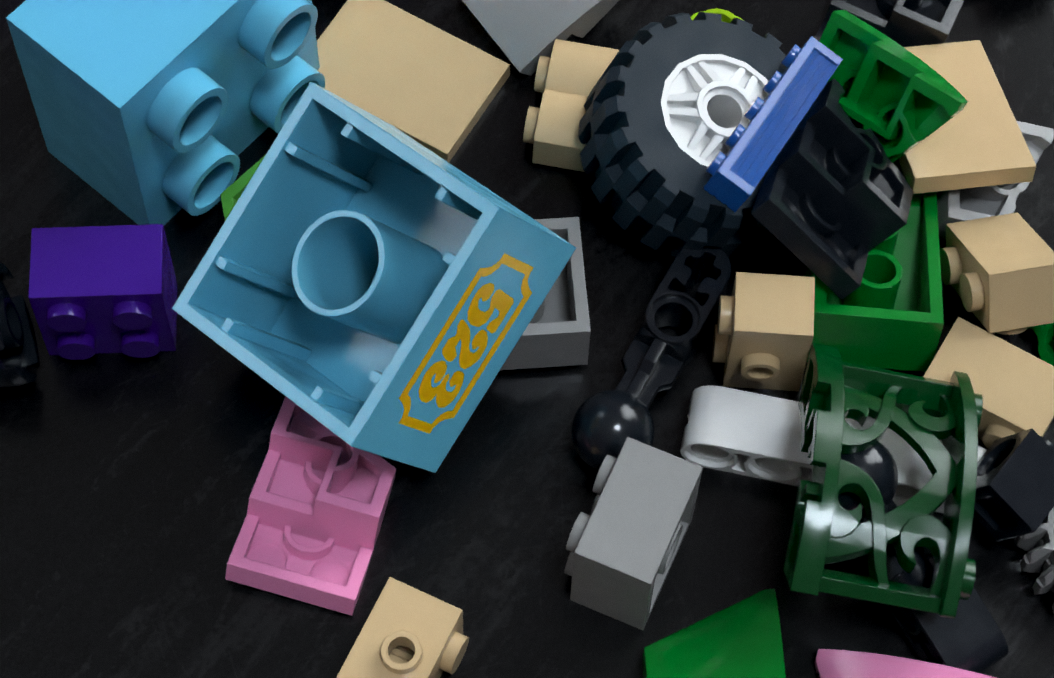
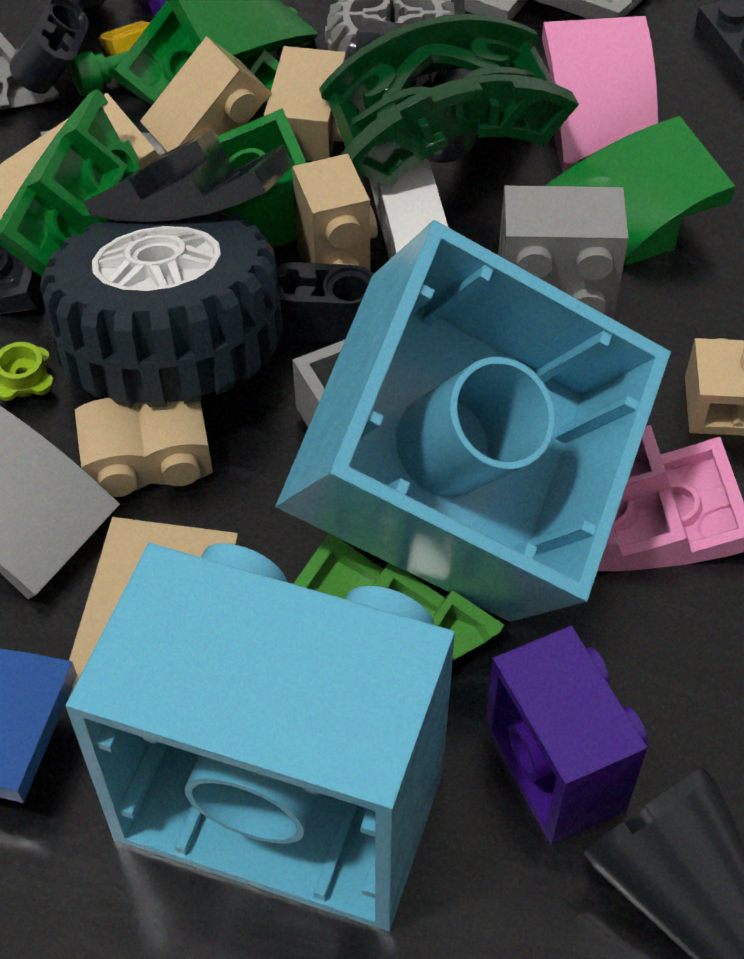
camera: 110 degrees left, 10 degrees down
(770, 122) = (149, 215): blue piece -> none

